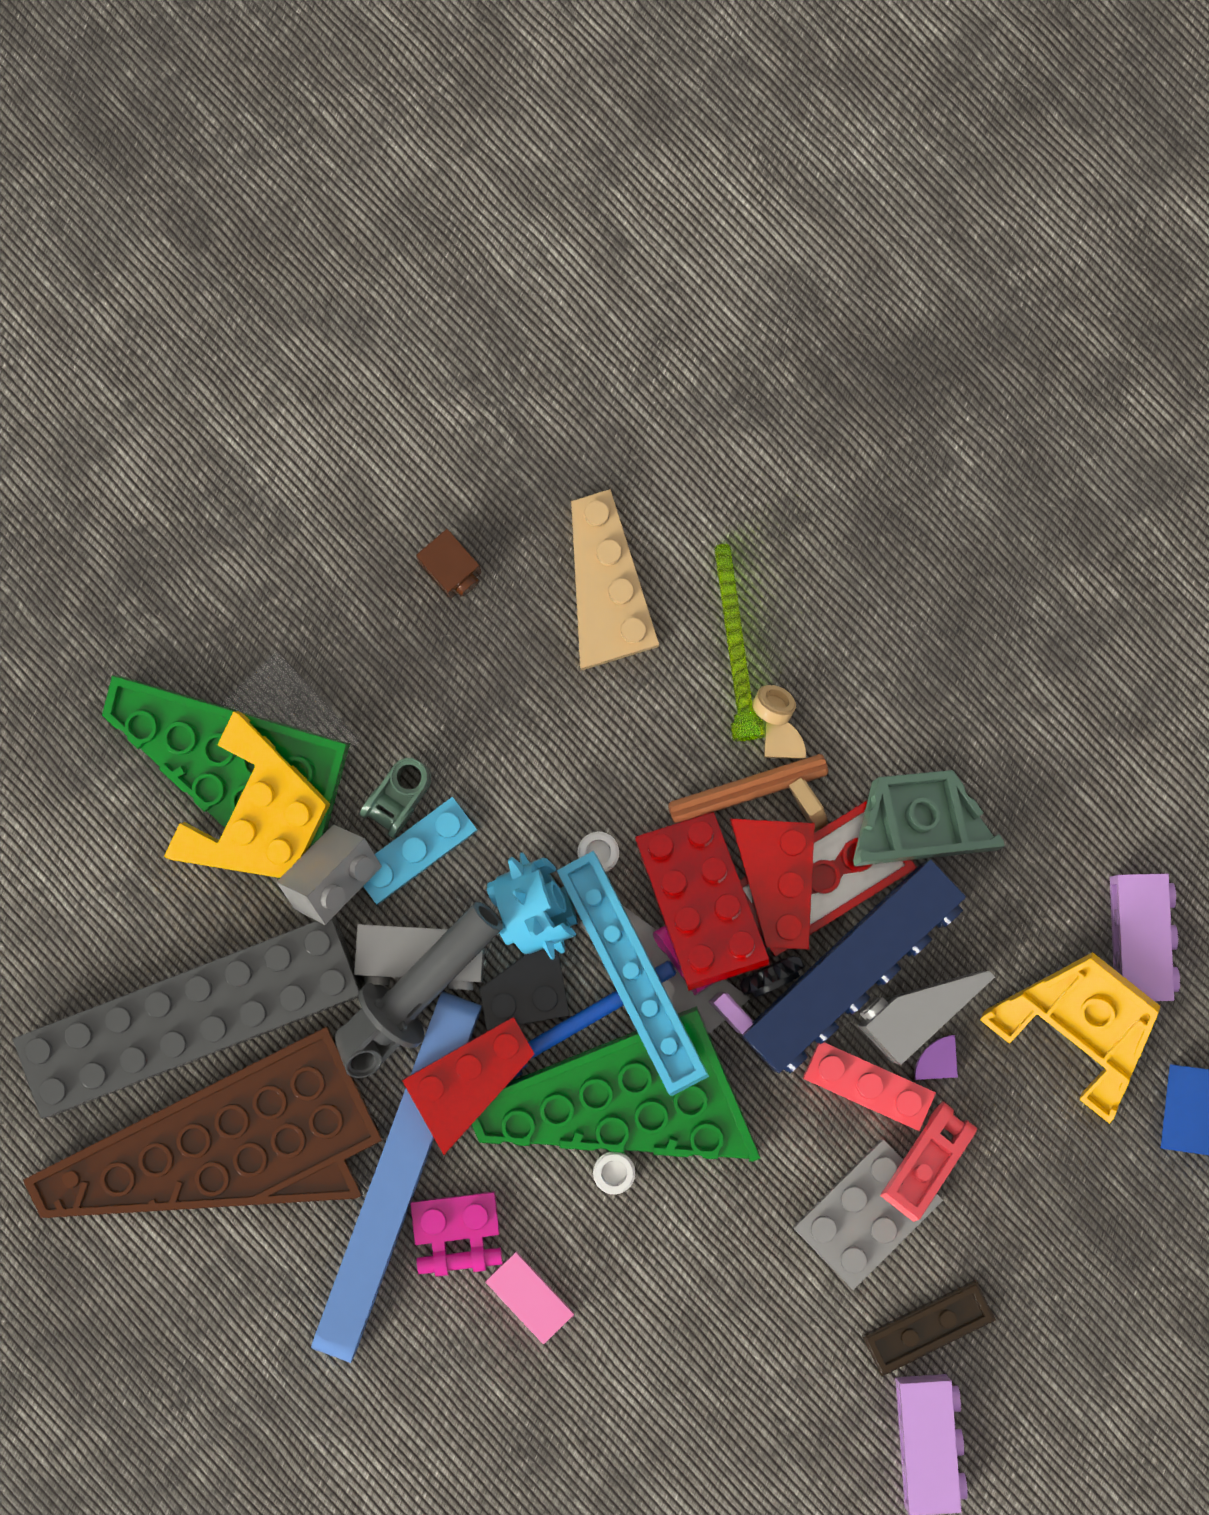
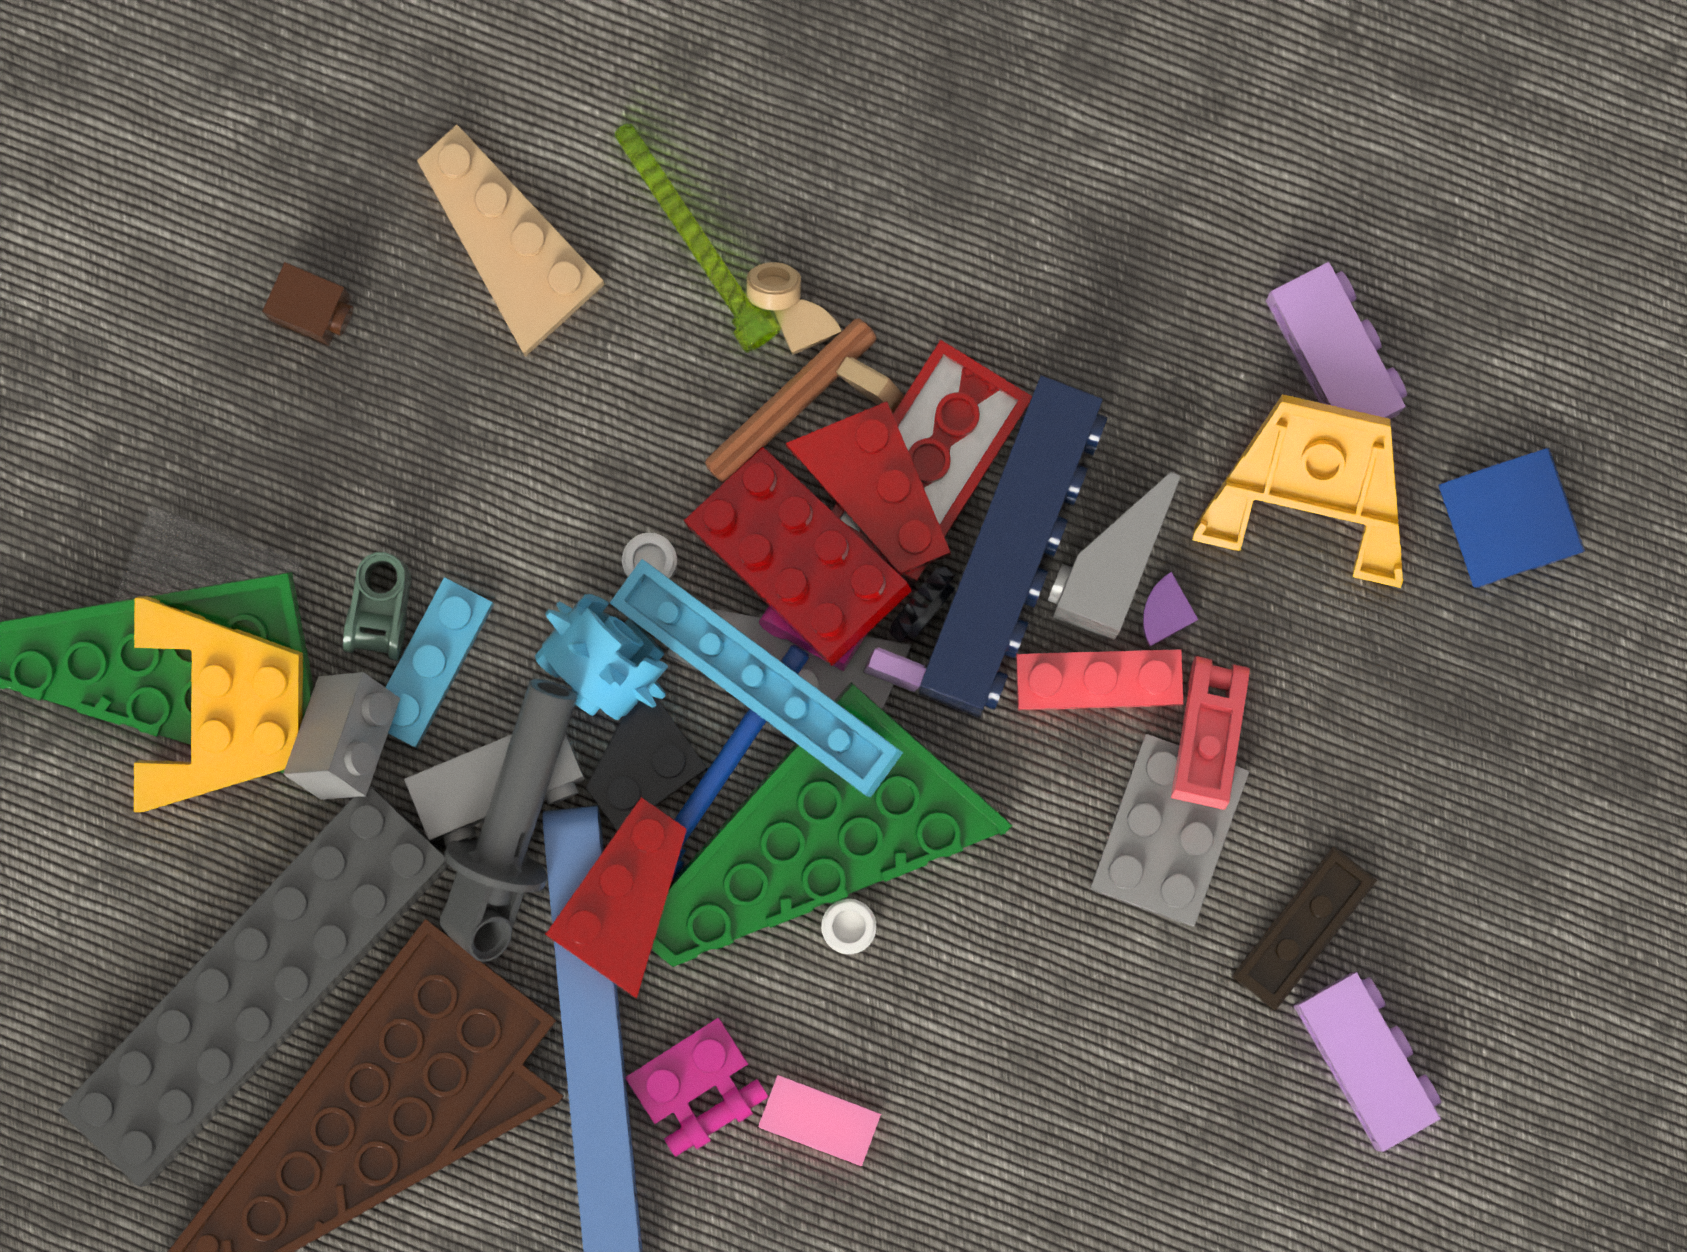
camera: 25 degrees left, 0 degrees up
(921, 820) = (1010, 336): sand green wing -> none

